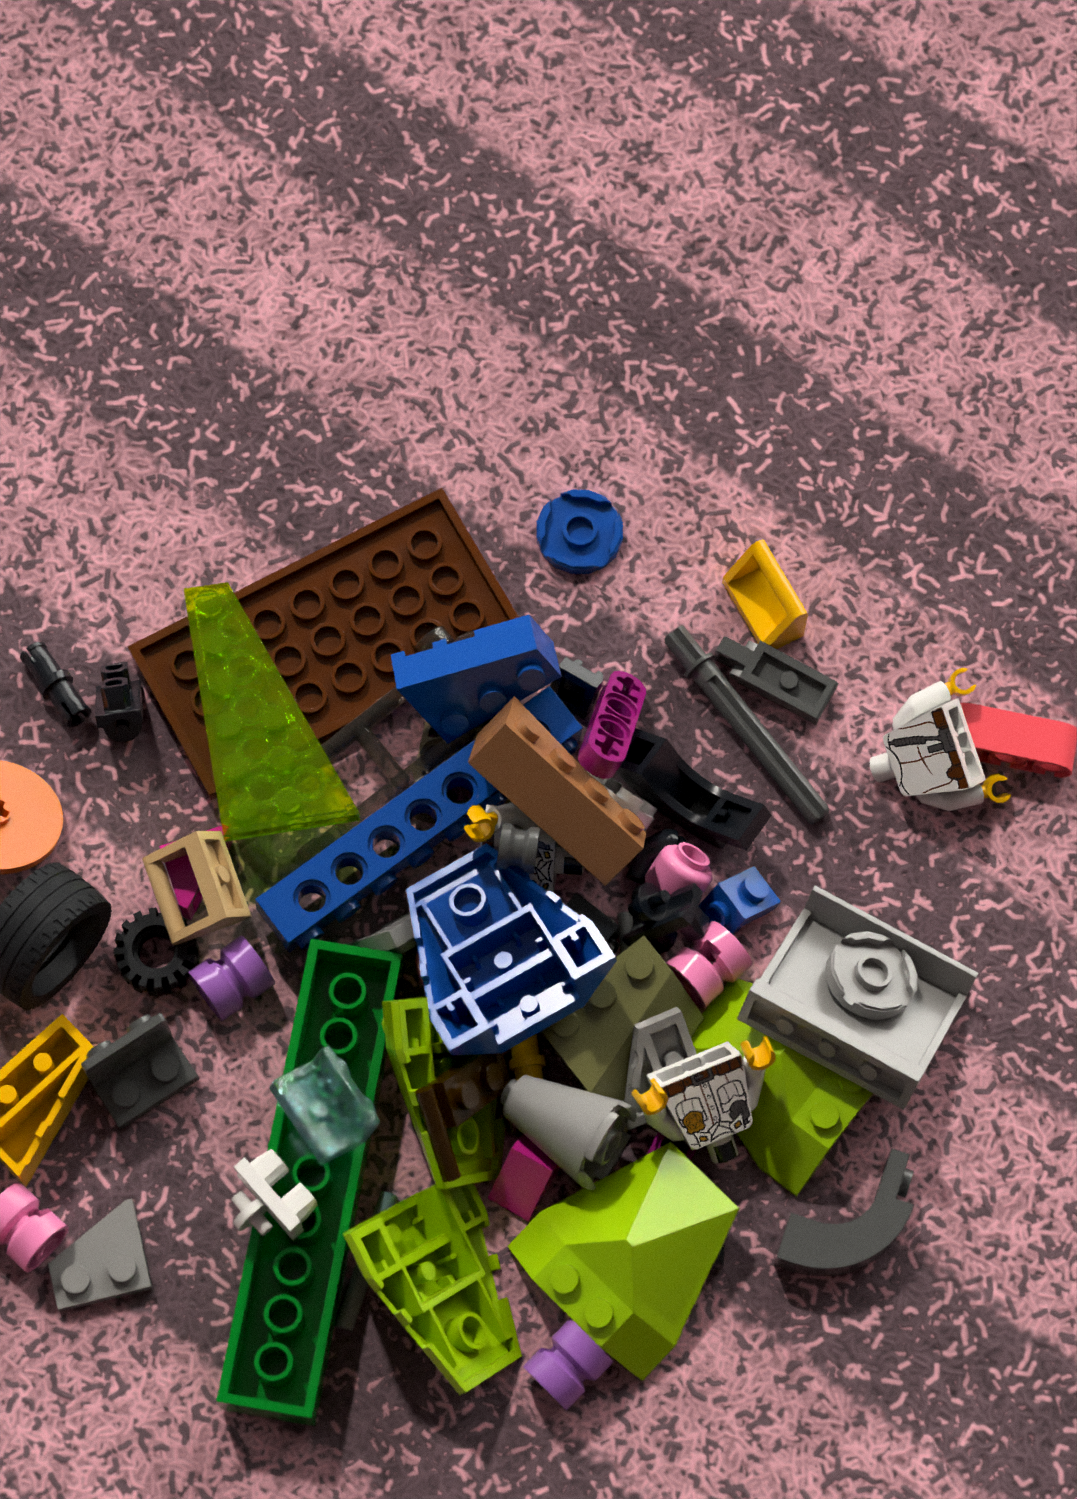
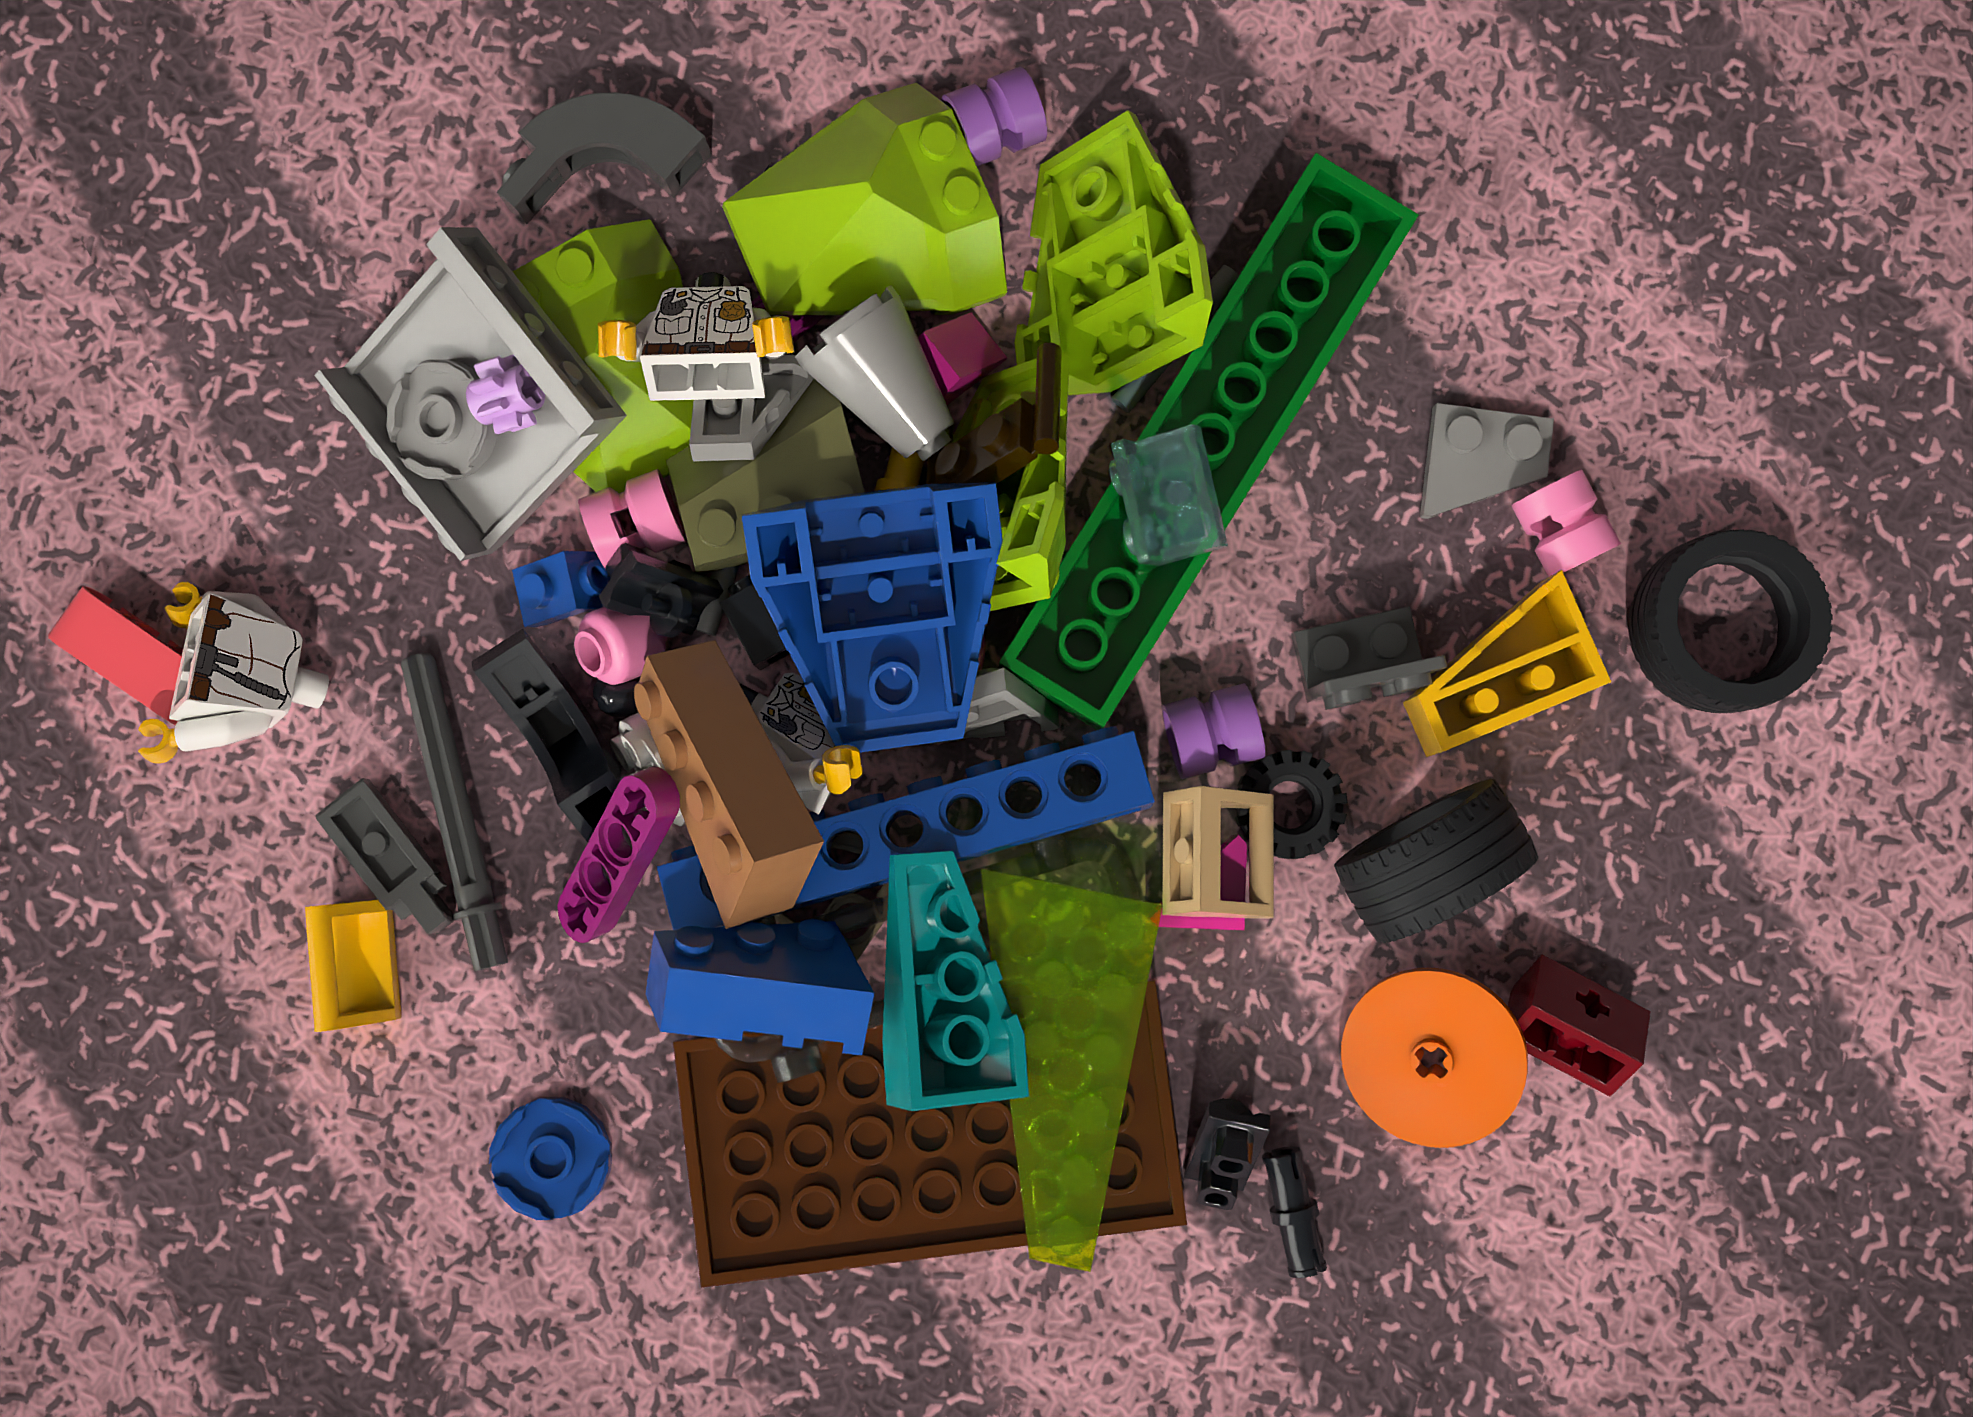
camera: 160 degrees left, 15 degrees up
(286, 1211) = (1264, 388): white hips -> none
(349, 715) = (944, 1008): none -> teal wedge
(518, 848) = (803, 717): dark grey wheel -> none
(577, 687) = (633, 940): black tile -> none
(828, 992) = (504, 395): none -> lavender gear

